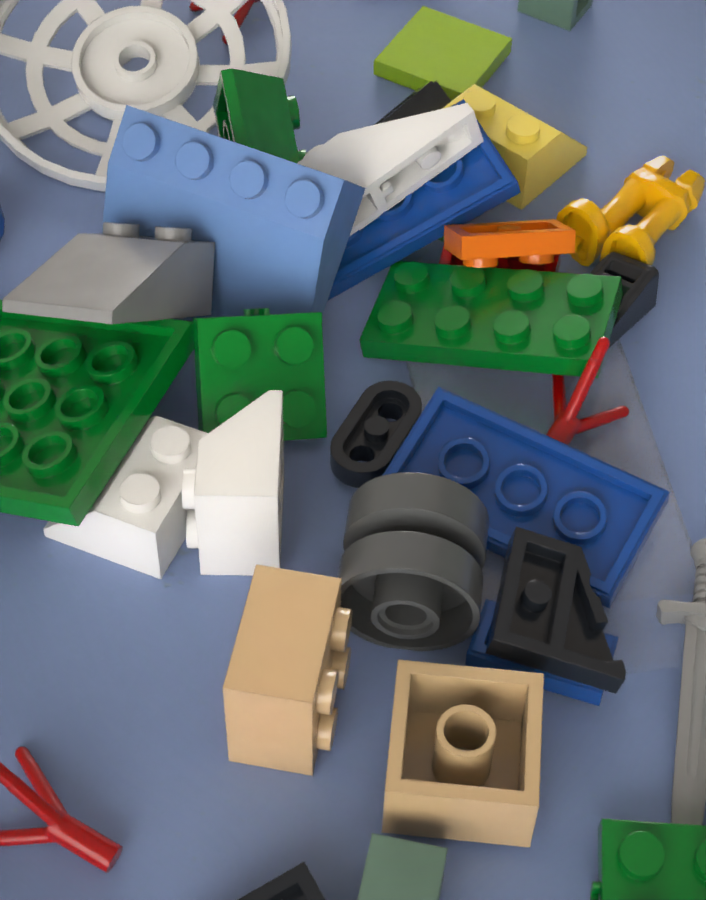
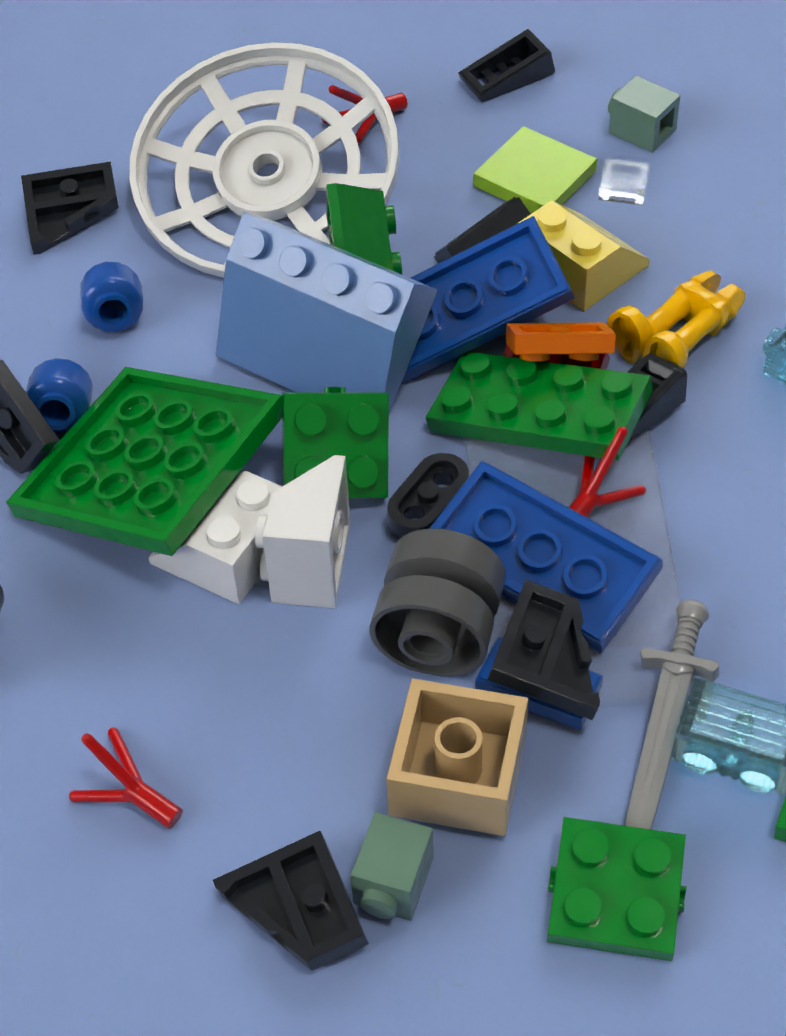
camera: 10 degrees right, 0 degrees up
(121, 278) = (228, 355): light grey slope -> none
(286, 670) = (323, 681): tan brick -> none
(396, 156) = (468, 264): white slope -> none
(545, 63) = (624, 181): none -> clear tile

